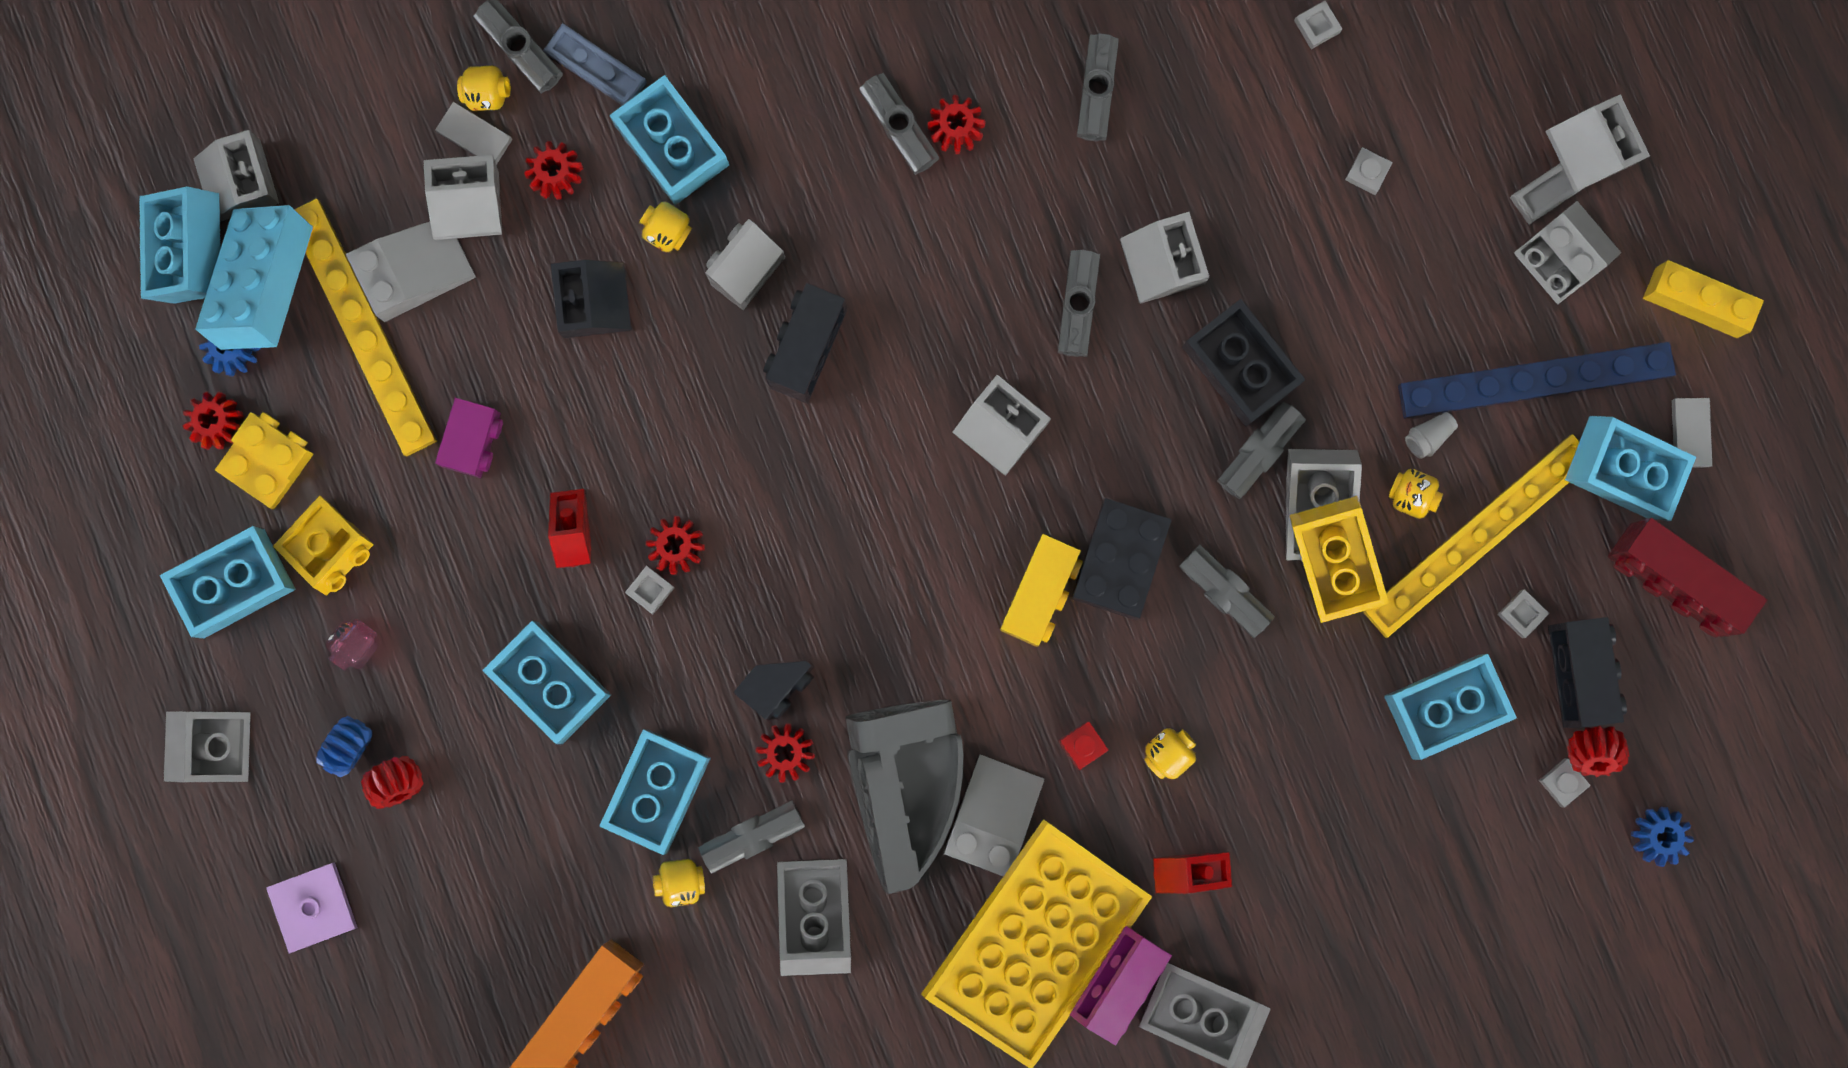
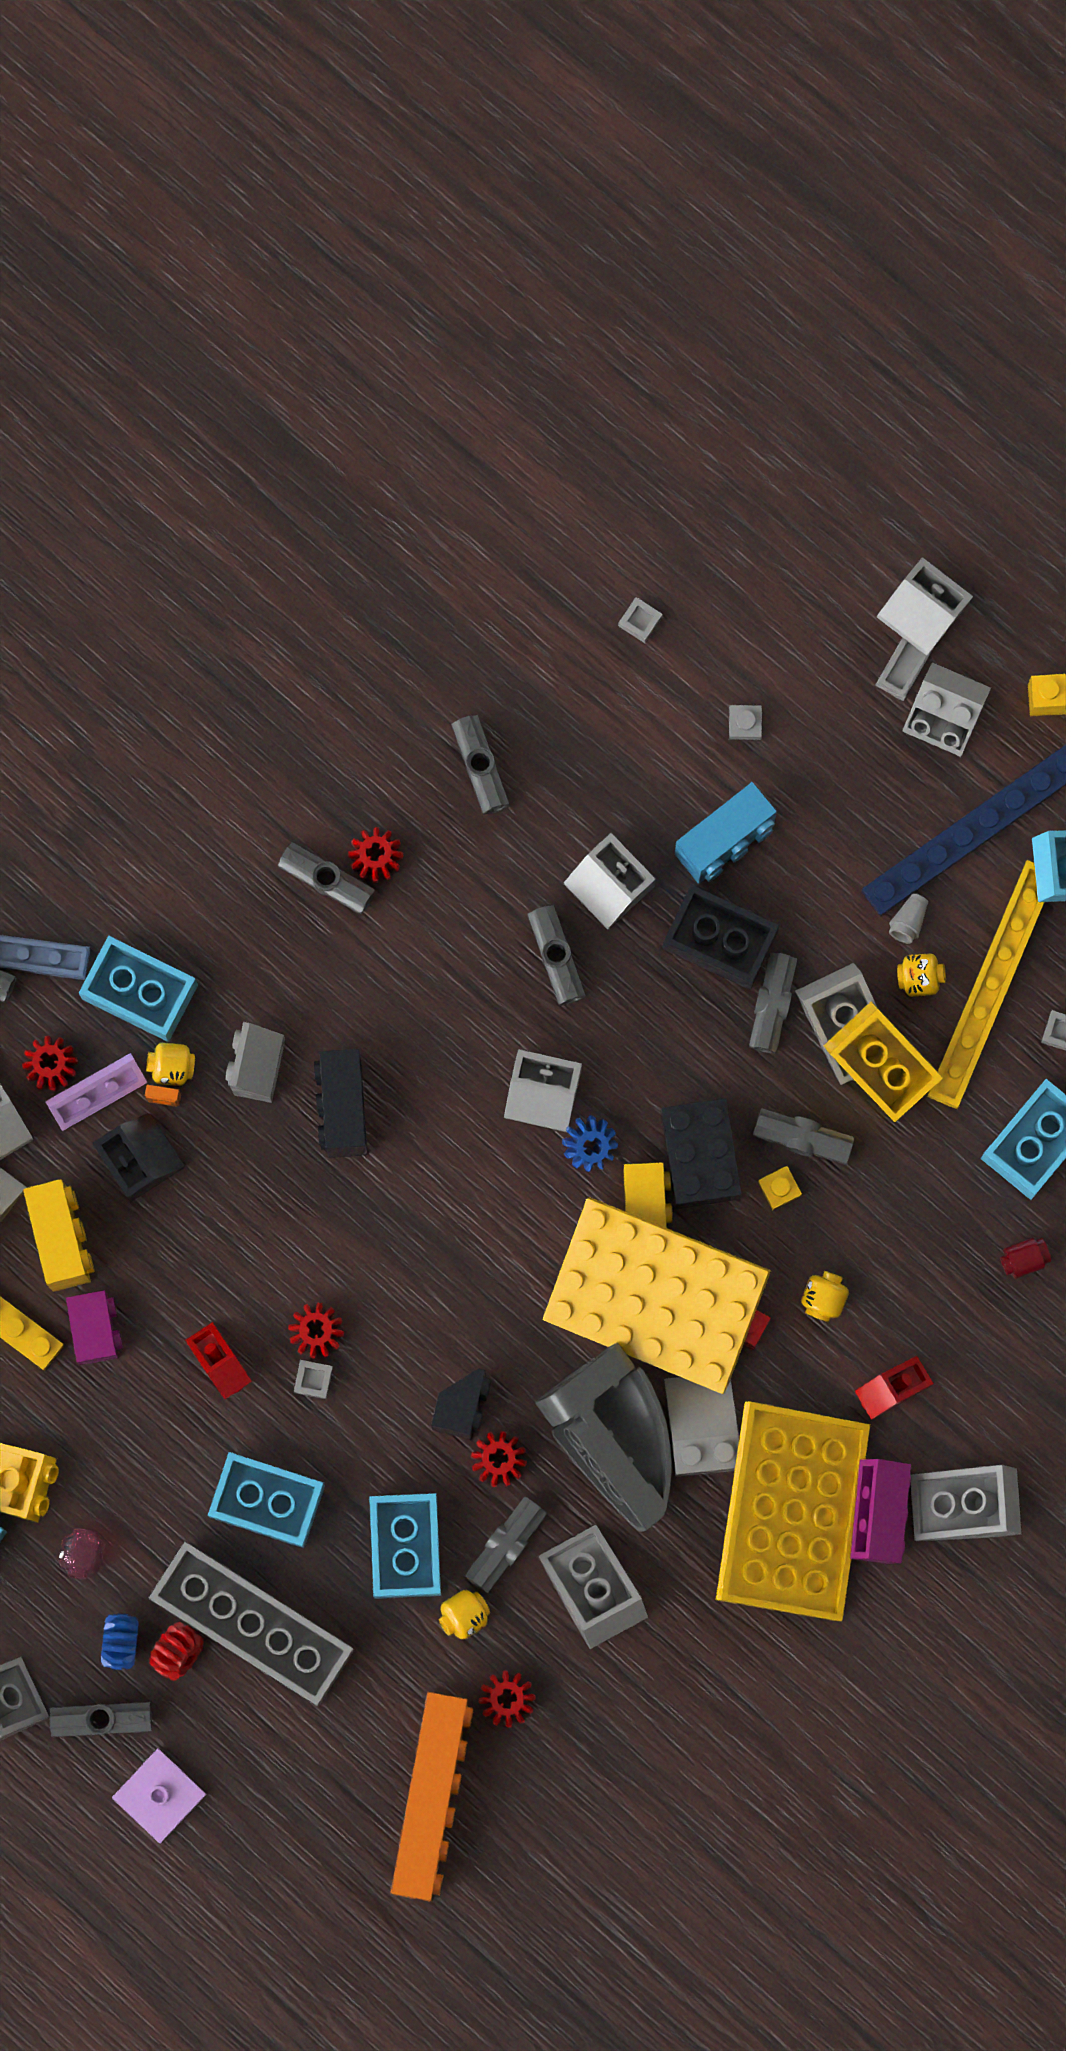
camera: 25 degrees left, 5 degrees down
(272, 802) = (123, 1719): none -> dark grey piece
(474, 792) = (251, 1624): none -> light grey brick
(477, 335) = (58, 1235): none -> yellow brick
(583, 218) = (96, 1092): none -> lavender plate
(643, 252) = (163, 1095): none -> orange tile
(685, 994) = (498, 1691): none -> red gear
(1011, 674) = (656, 1295): none -> yellow plate
(1028, 488) = (592, 1131): none -> blue gear
(1179, 628) = (779, 1188): none -> yellow plate
(1298, 267) = (726, 834): none -> dark azure brick
(1380, 812) = (1025, 1257): none -> dark red brick

